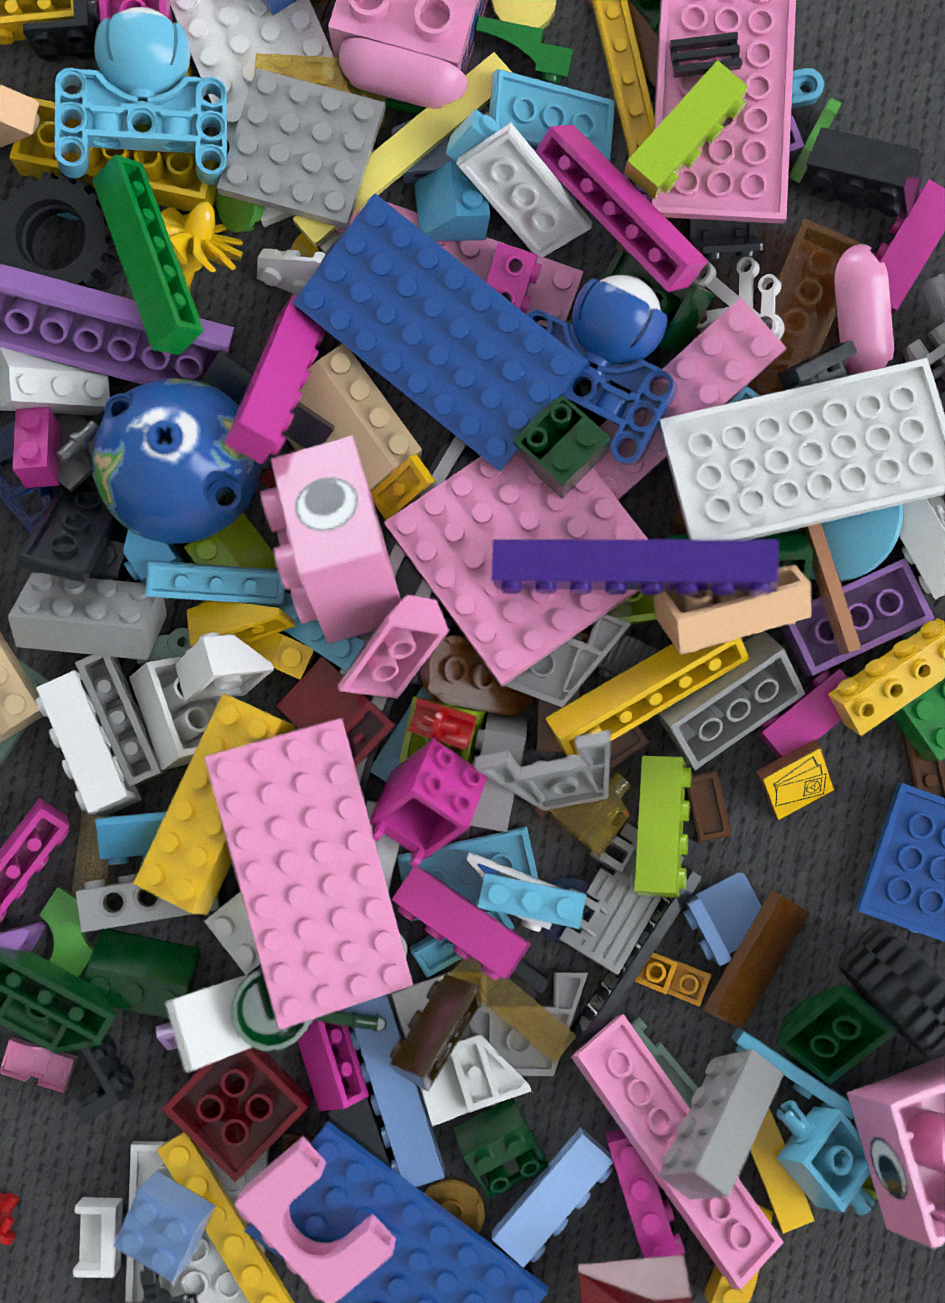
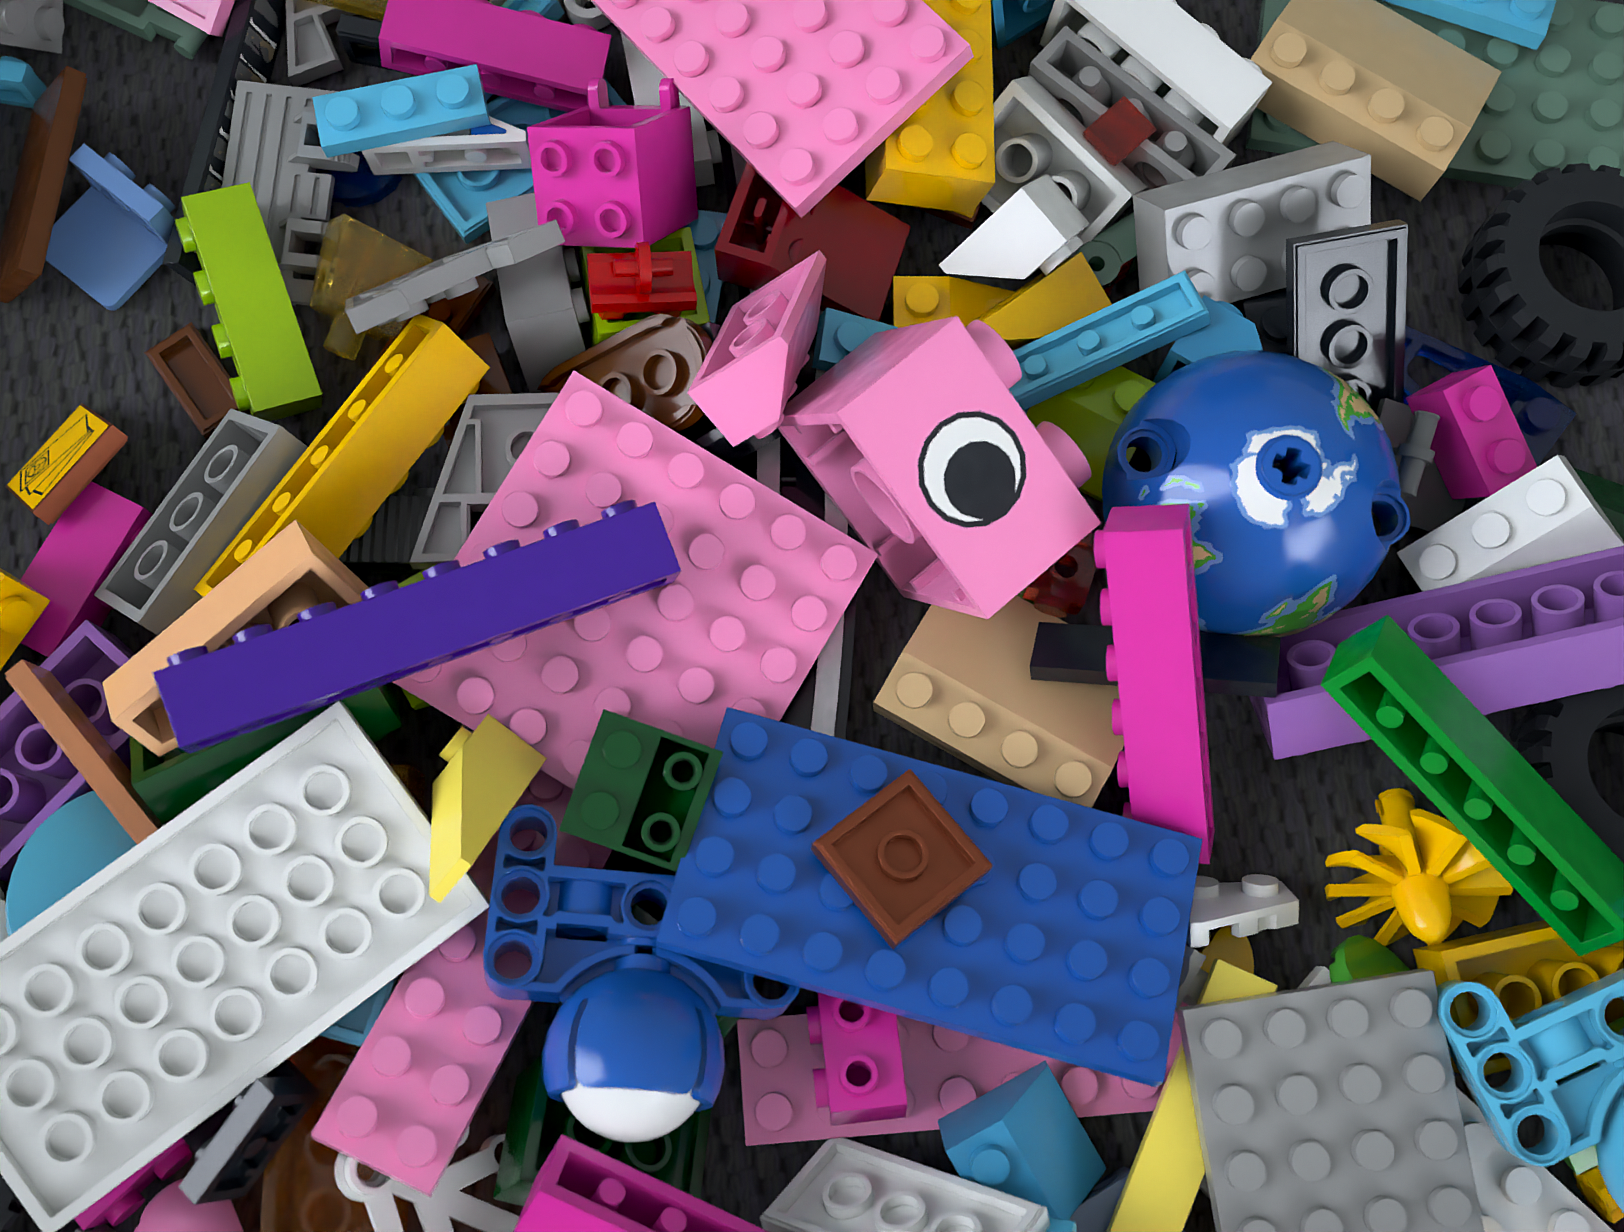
camera: 155 degrees right, 10 degrees down
(132, 705) = (1119, 131): none -> clear red piece
(402, 487) = (877, 636): yellow plate -> none
(448, 350) = (901, 858): none -> copper tile
(646, 473) = (474, 796): none -> light yellow slope
(674, 978) = (153, 130): light orange slope -> none

